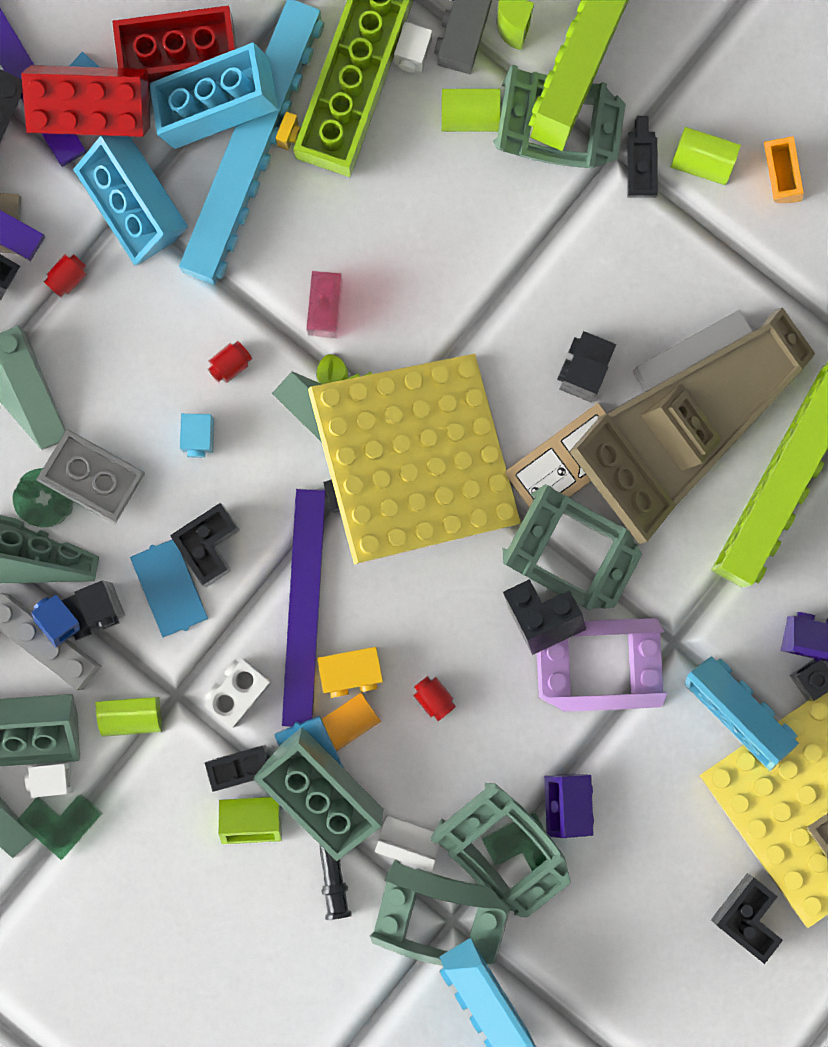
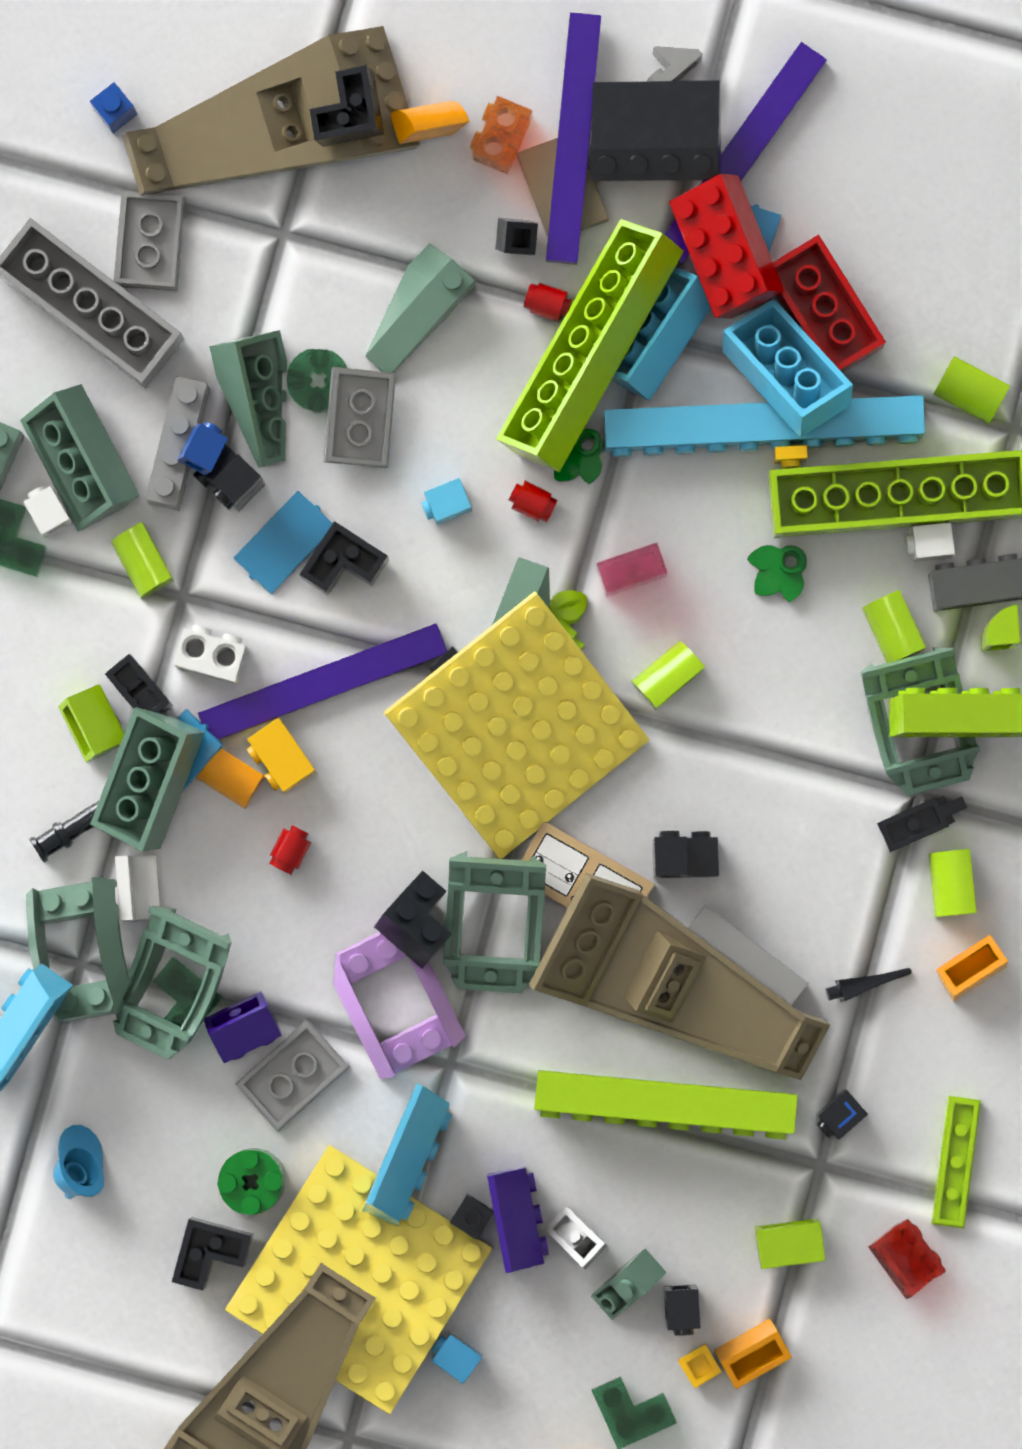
camera: 70 degrees right, 0 degrees up
(118, 252) = (590, 344): none -> lime brick
(206, 313) = (581, 461): none -> green plate
(381, 188) = (774, 573): none -> green plate
(426, 313) = (668, 674): none -> lime brick
(625, 998) = (79, 1163): none -> dark azure piece
(626, 780) = (292, 1075): none -> light grey tile
(719, 862) = (233, 1181): none -> green brick
(756, 277) = (852, 987): none -> black piece

